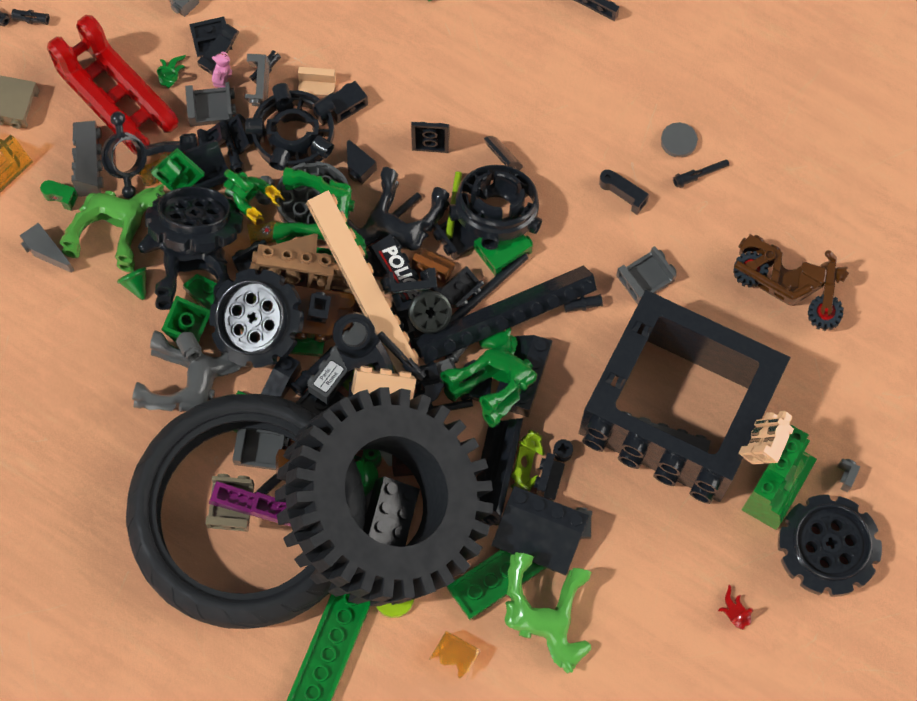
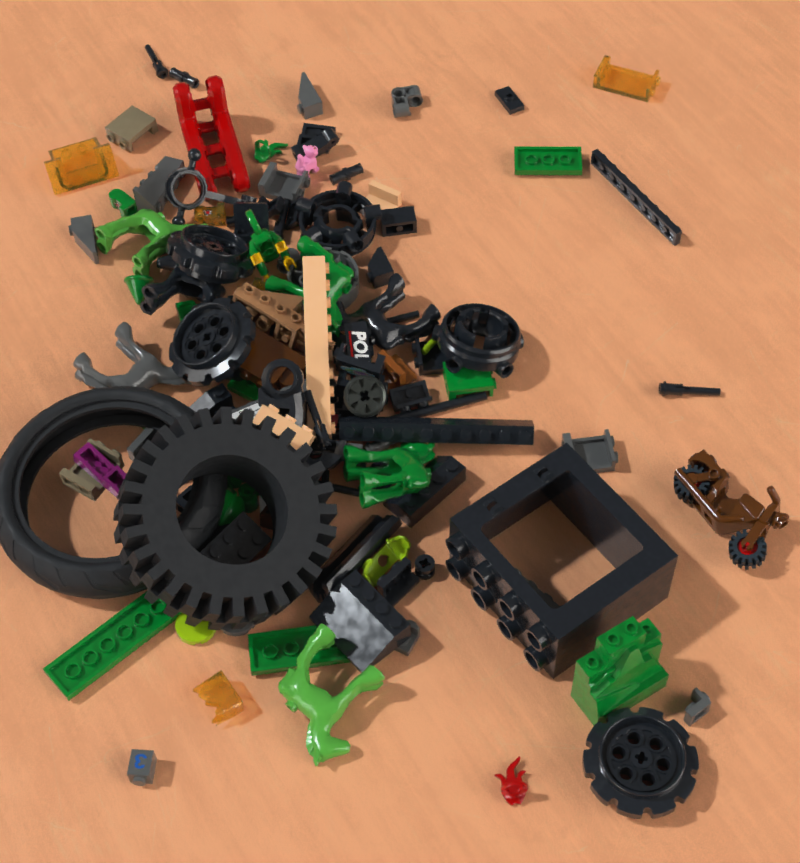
camera: 30 degrees right, 15 degrees down
(177, 171) = (223, 214): green plate -> none
(185, 317) = (155, 329): green slope -> none
(189, 346) = (144, 342): dark grey brick -> none
(263, 67) = (336, 172): dark grey panel -> none
(322, 300) = (270, 346): black brick -> none
(430, 137) = (452, 267): black slope -> none
(502, 152) = (509, 303): black slope -> none
(583, 303) = (515, 453): black pin -> none
(624, 189) = (607, 376): black leg -> none
(679, 139) = (682, 357): dark grey tile -> none
(768, 438) = (612, 613): light nougat hips -> none

